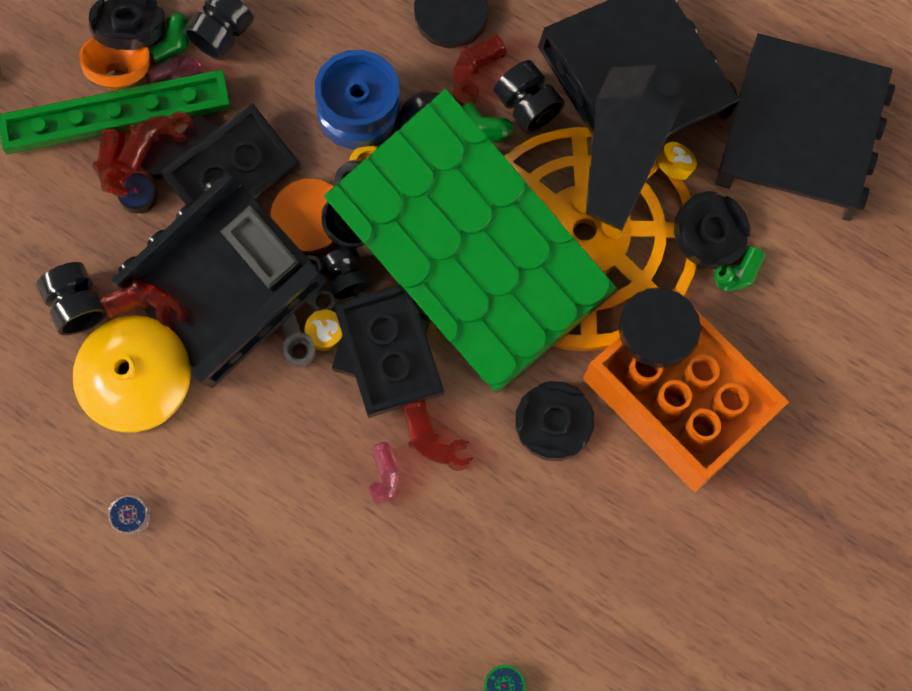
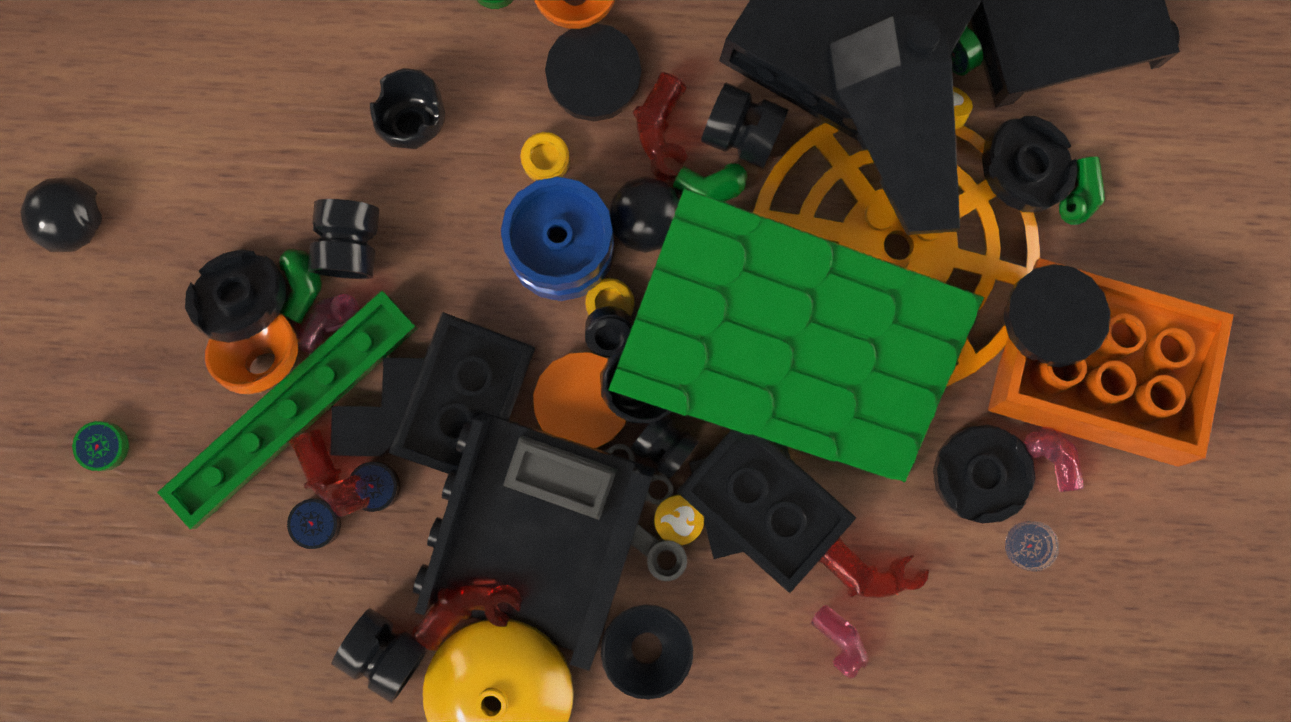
camera: 35 degrees left, 10 degrees up
(83, 194) = (313, 524): none -> tile
(146, 133) = (343, 418): clear red piece -> none
(243, 379) = (652, 678): none -> black piece
(386, 44) = (545, 156): none -> yellow tile
(558, 489) = (1032, 546): none -> clear tile
(617, 436) = (1059, 452): none -> clear pink arm
(710, 131) = (967, 53): none -> green tile

